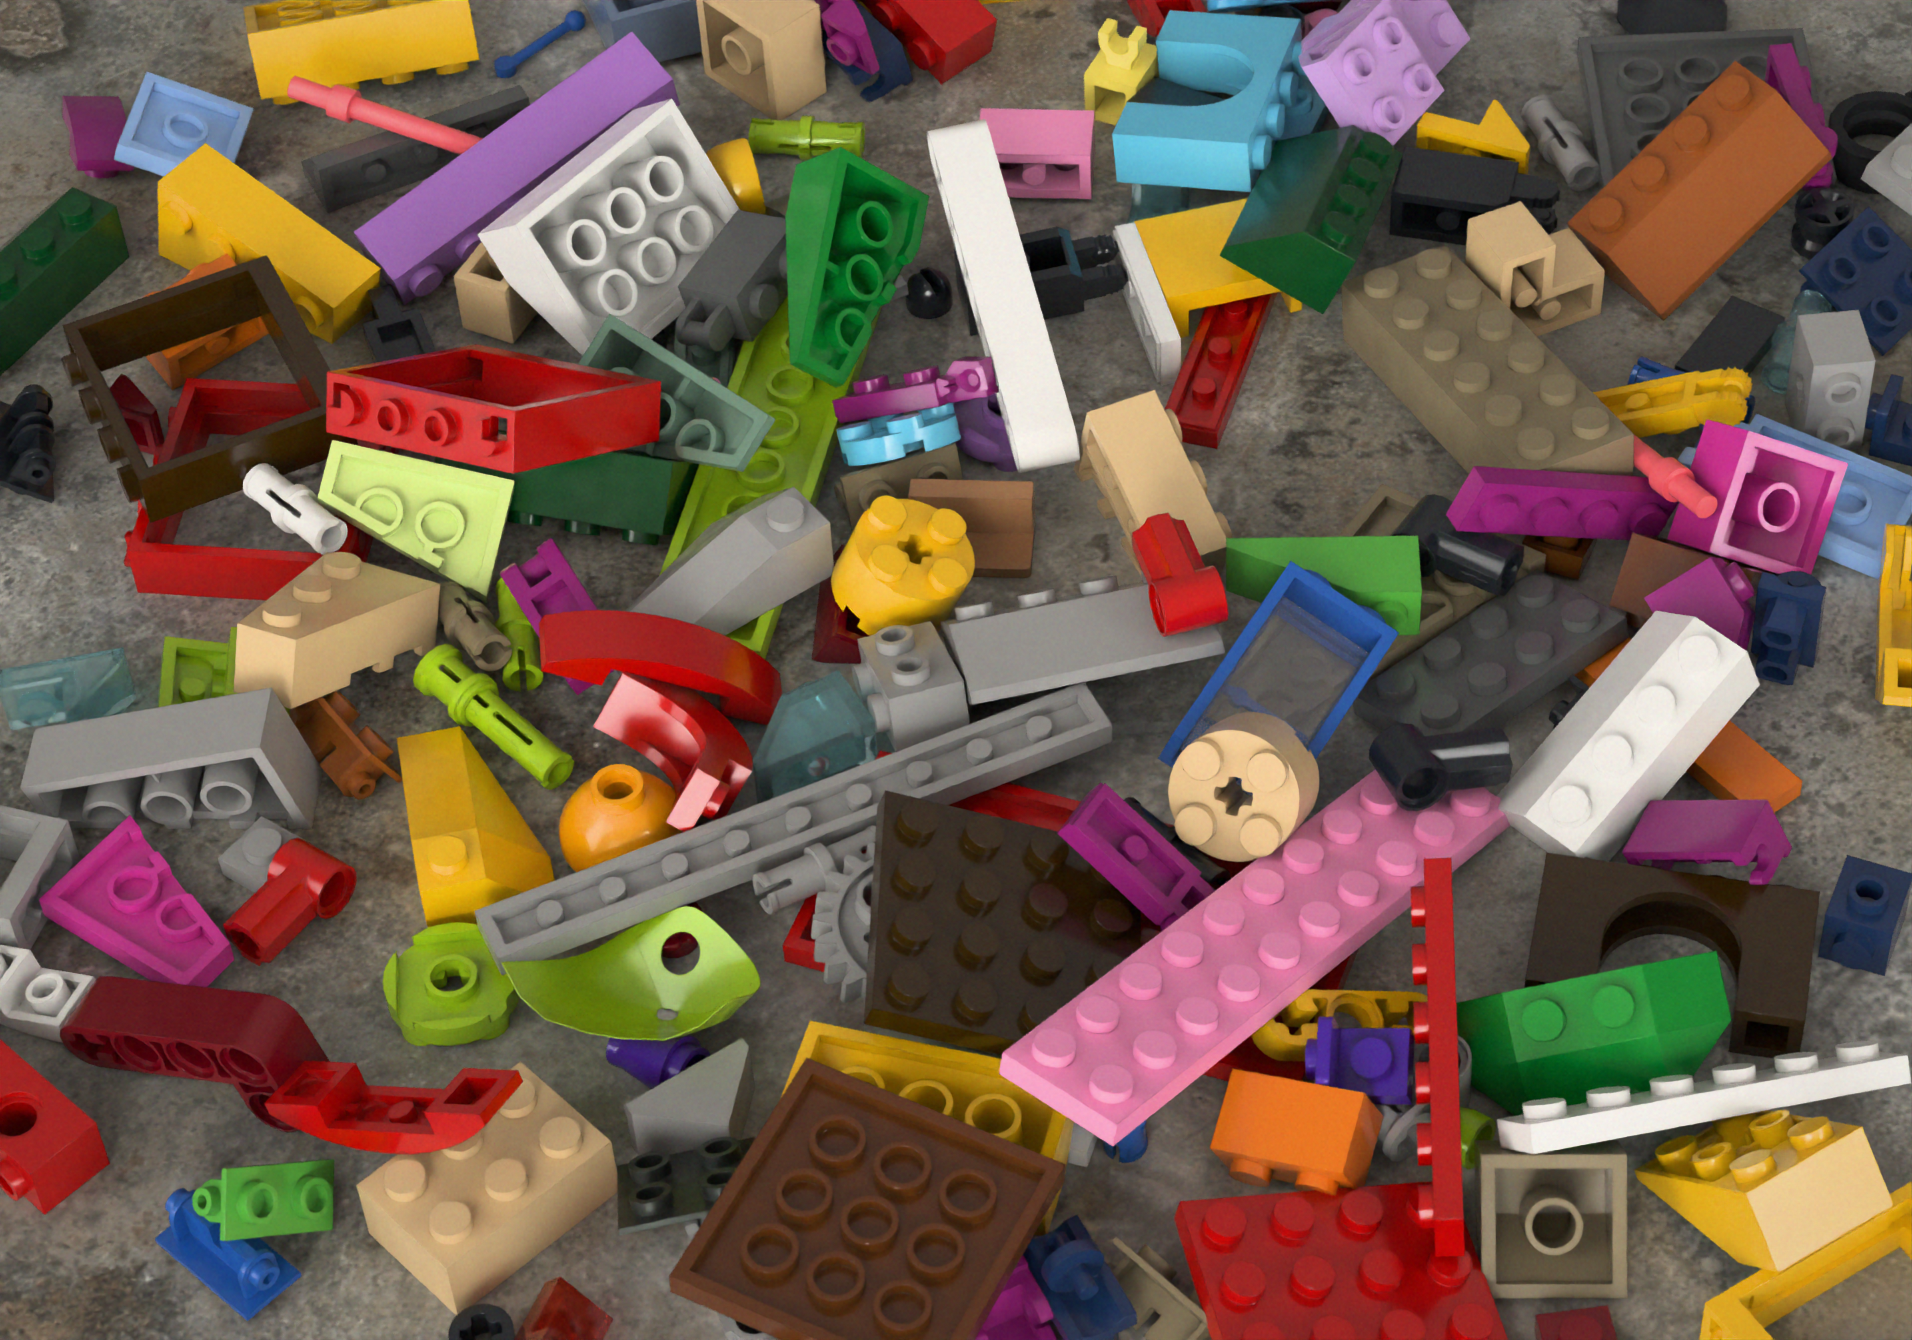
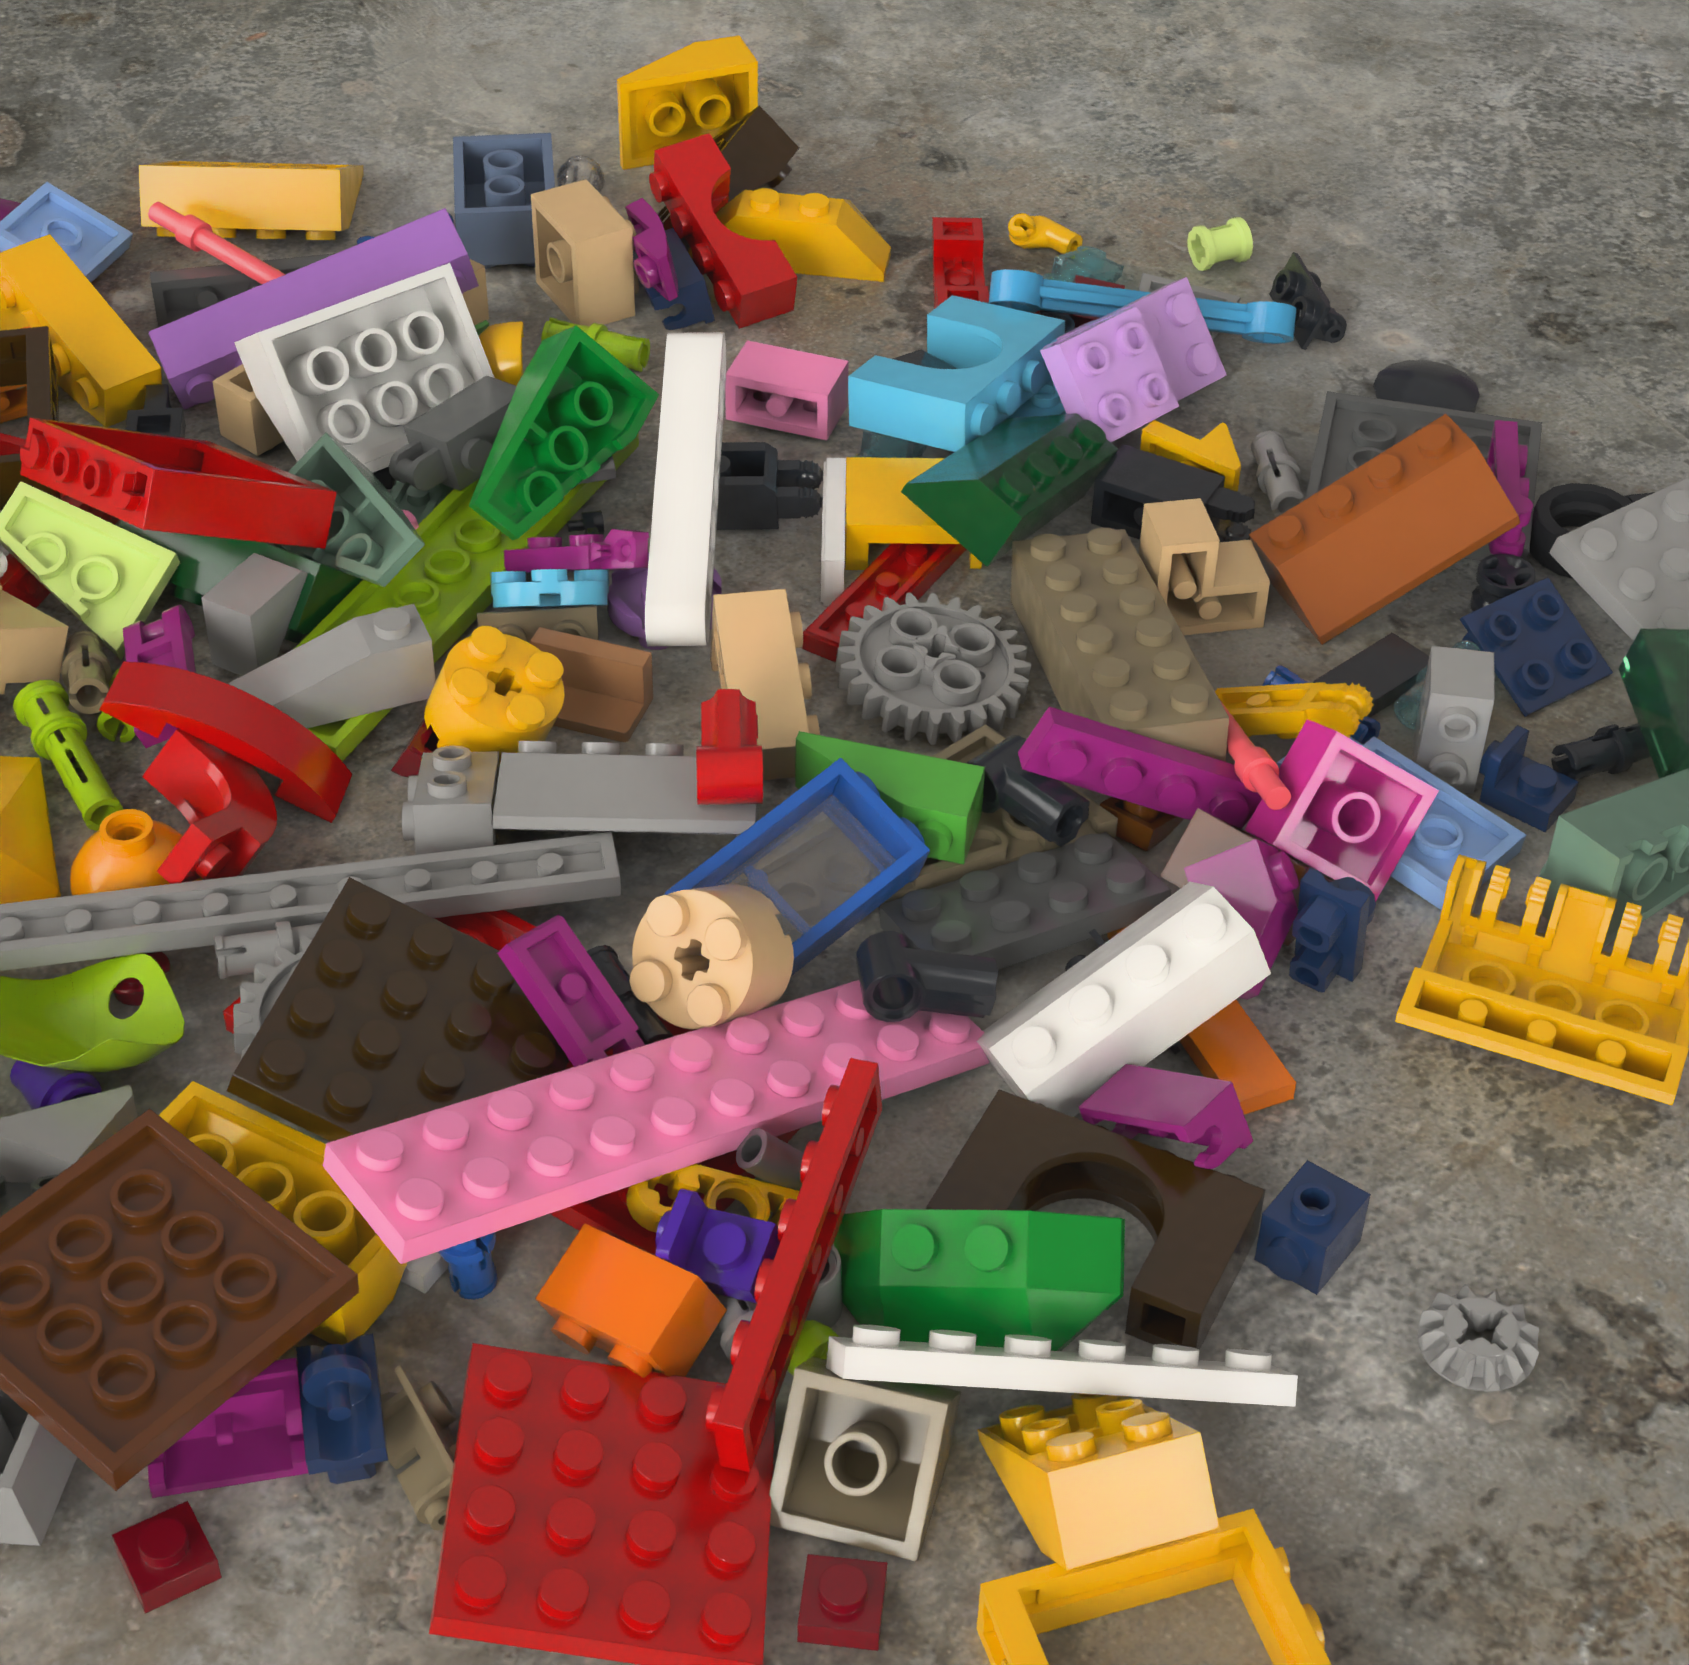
camera: 10 degrees right, 5 degrees down
(616, 529) = (251, 613): none -> light grey slope
(813, 736) = (342, 826): clear light blue slope -> none
(896, 349) = (590, 523): none -> black piece
(922, 298) = (639, 487): black hinge -> none
(1118, 71) = (893, 332): light yellow brick -> none
(1305, 433) = (932, 667): none -> light grey gear
(1376, 970) = (770, 1159): none -> flat silver hinge

